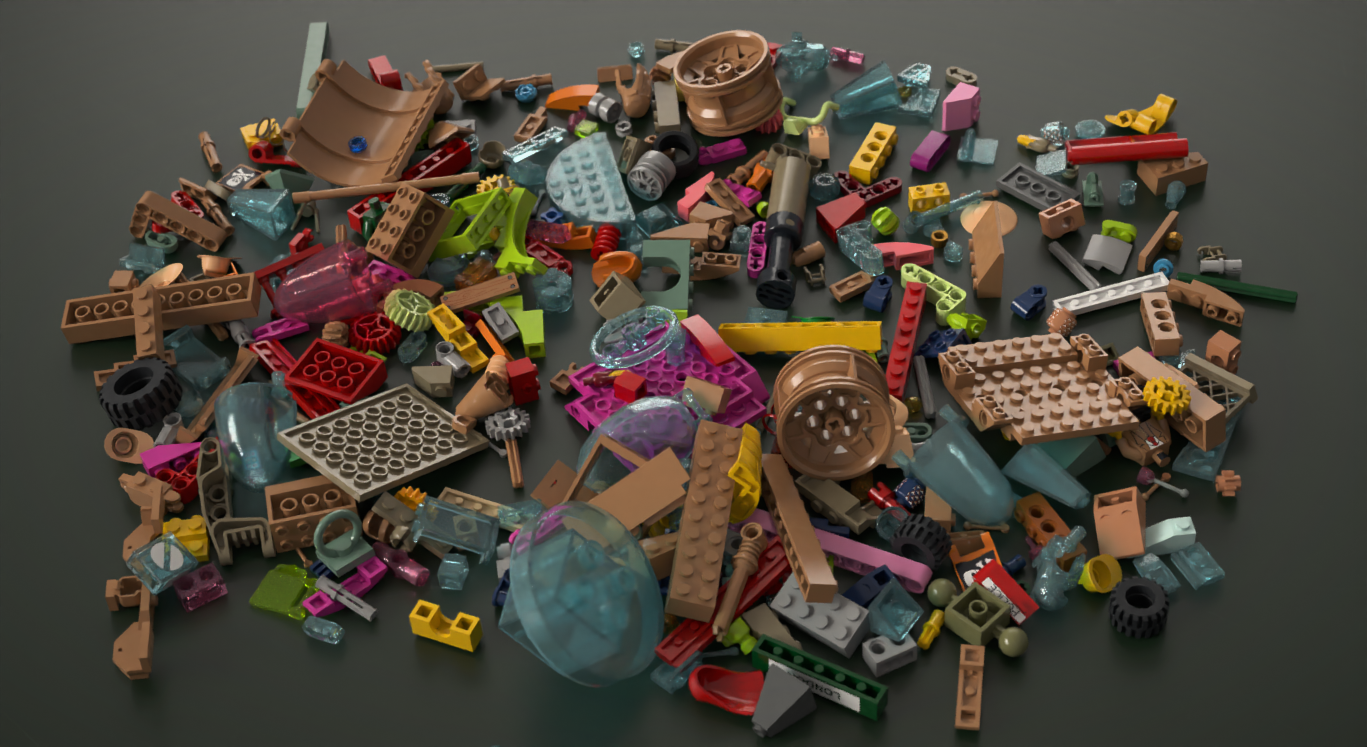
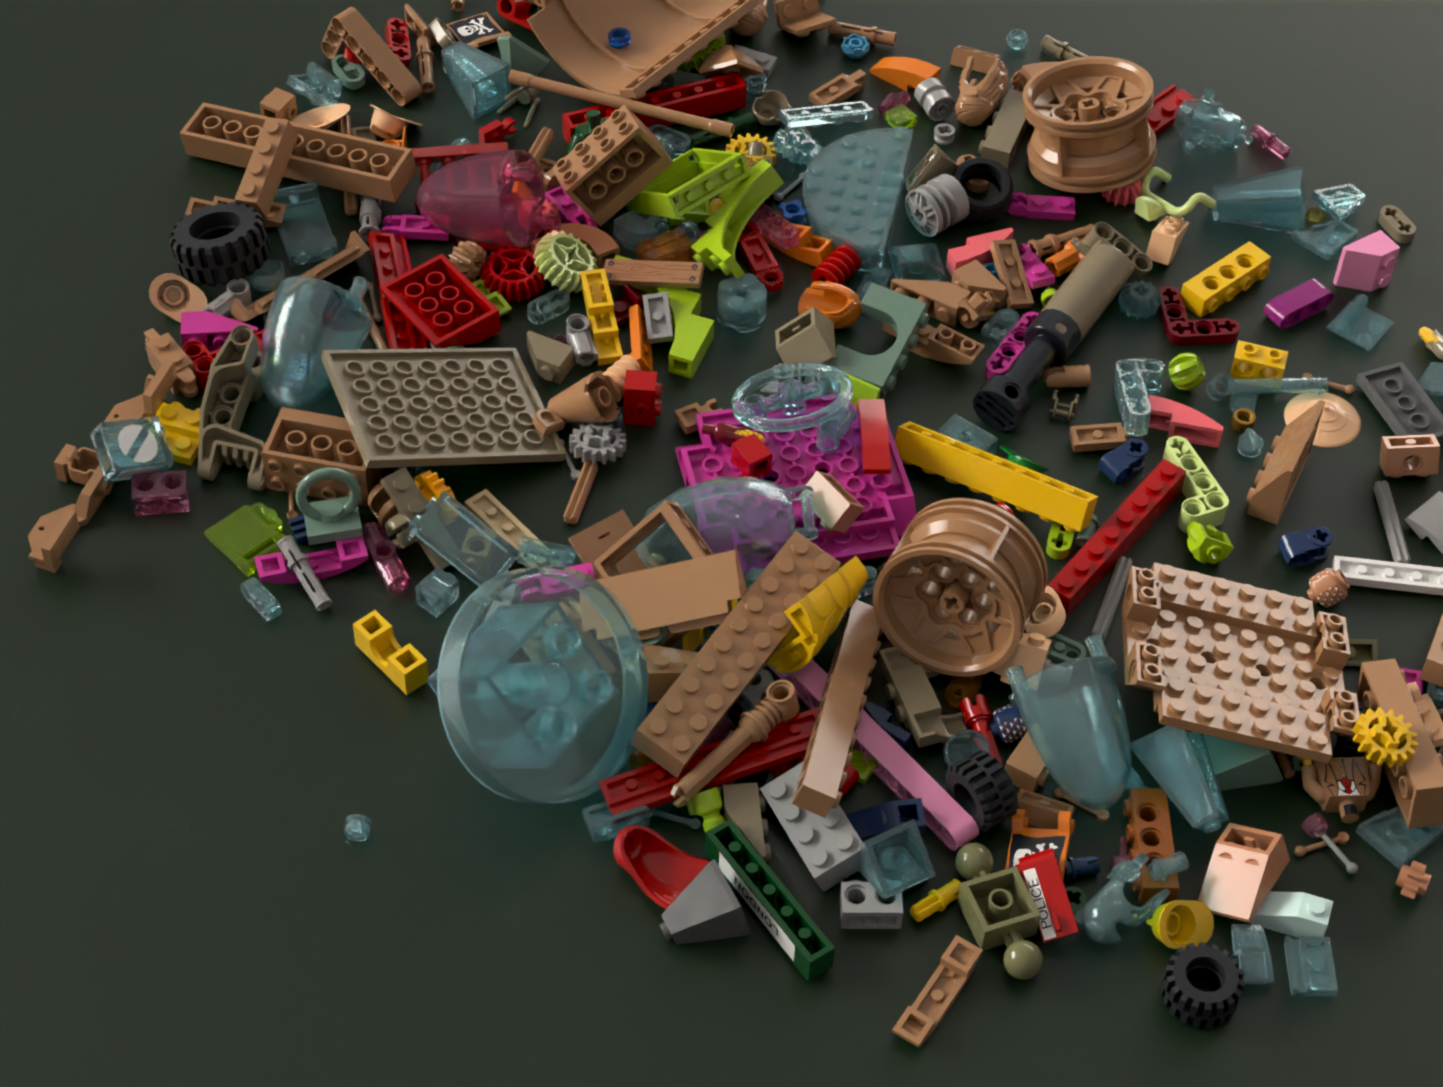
camera: 20 degrees right, 5 degrees up
(840, 214) = (1140, 340): slope -> none
(913, 404) = (1084, 615): clear yellow hinge -> none
(939, 342) = (1166, 551): dark blue bracket -> none

